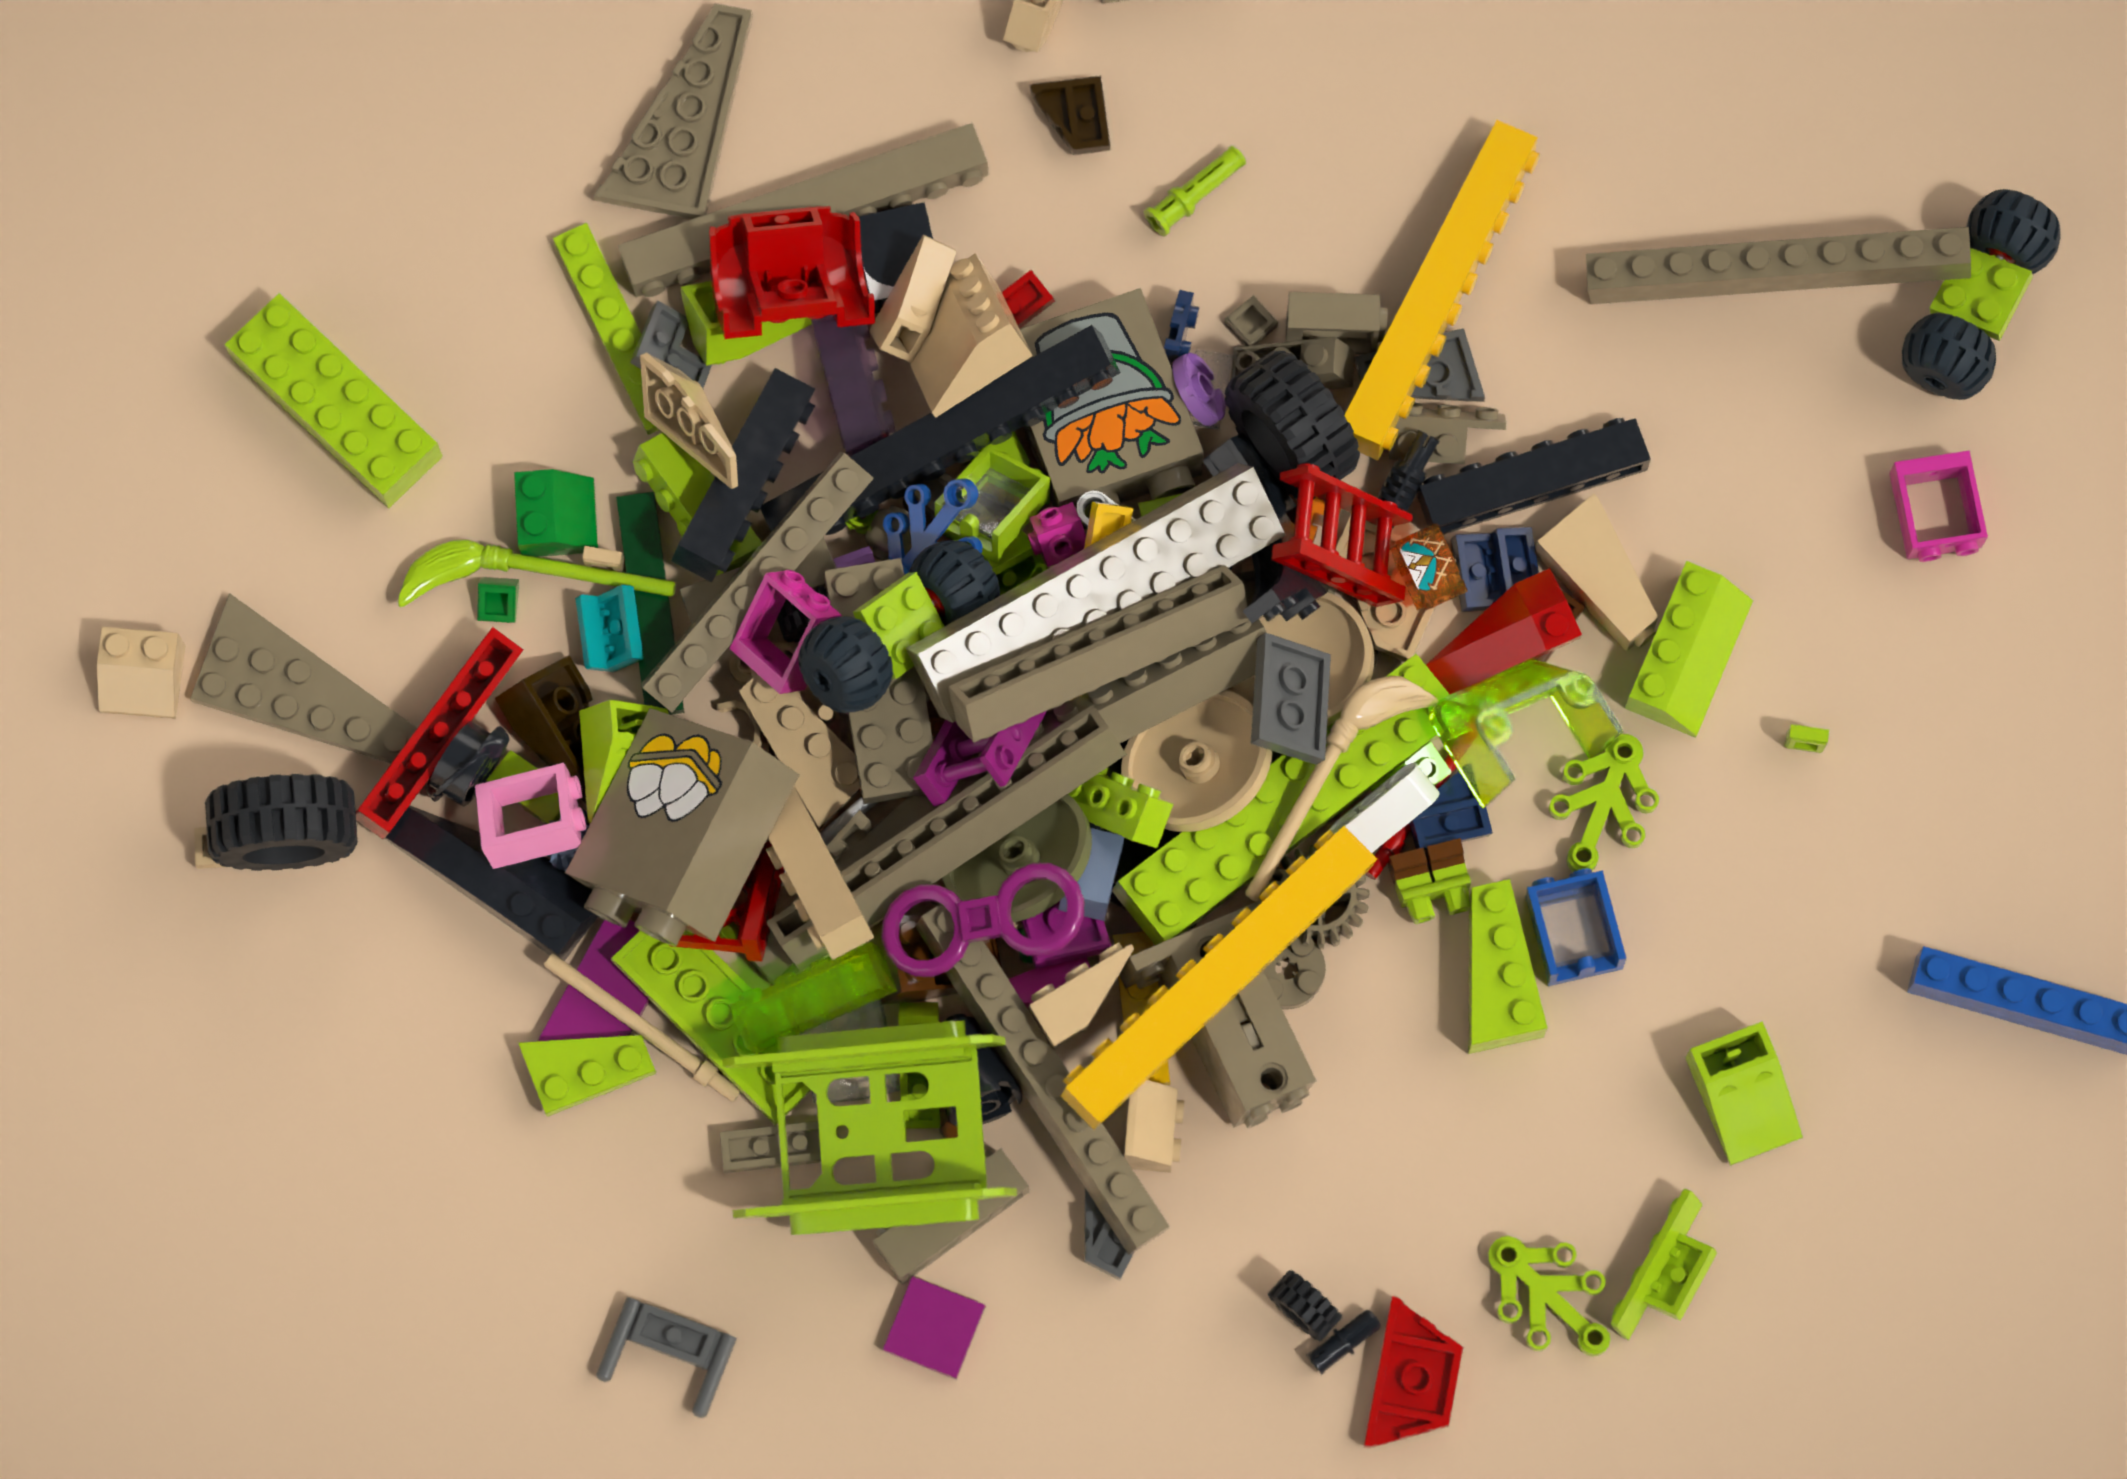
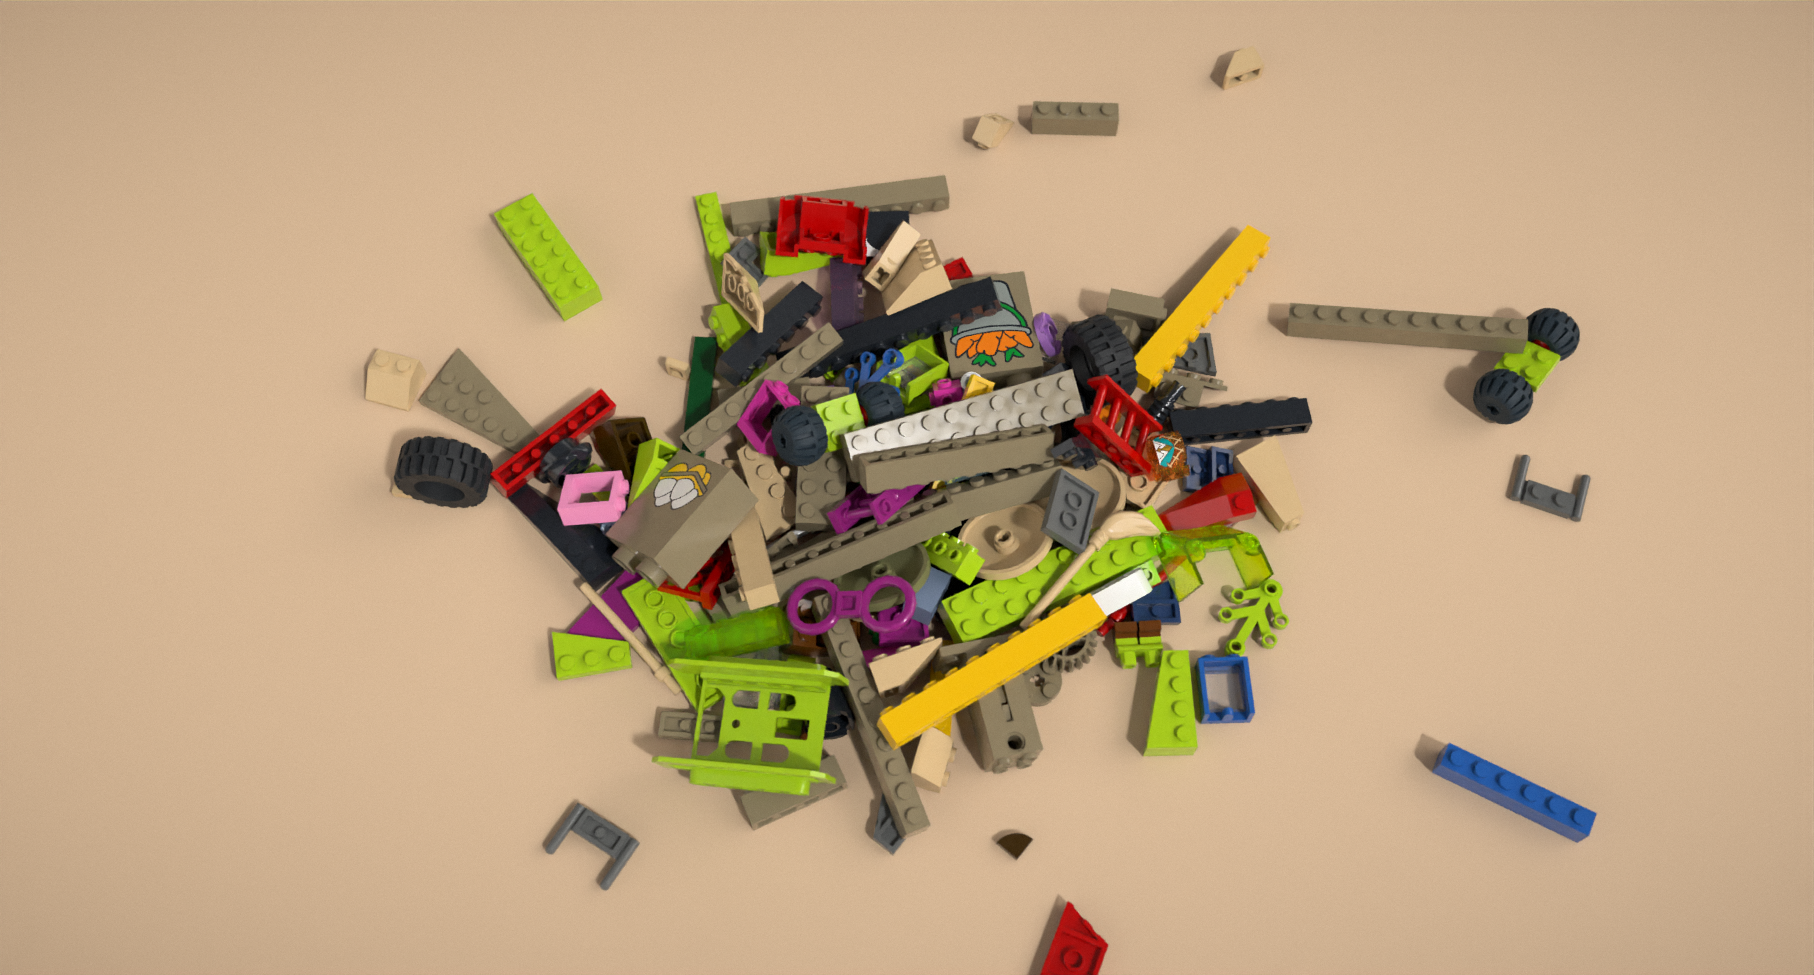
camera: 10 degrees right, 10 degrees down
(464, 557) = (600, 353): lime piece -> none
(497, 599) = (612, 380): green slope -> none
(555, 512) = (656, 337): green slope -> none
(609, 629) = (671, 406): teal bracket -> none
(681, 136) = (783, 154): dark tan wing -> none
(934, 1328) = (767, 862): magenta tile -> none
(1075, 112) = (1005, 183): dark brown wing -> none
(1182, 200) = (1057, 238): lime pin -> none
(1183, 317) = (1045, 298): dark blue wing -> none
(1251, 322) = (1084, 308): dark tan tile -> none
(1299, 1227) = (1015, 844): none -> dark brown tile
(1305, 1305) = (1009, 895): black tyre -> none
(1344, 1341) = (1030, 925): black axle -> none
(1544, 1290) = (1168, 919): lime plant -> none
(1669, 1271) = (1253, 922): lime bracket -> none
(1690, 650) = (1320, 537): lime slope -> none
(1745, 1093) = (1319, 814): lime slope -> none
(1806, 738) = (1387, 603): lime tile -> none
(1931, 469) = (1486, 461): dark pink window -> none
(2042, 511) = (1547, 497): none -> dark grey plate

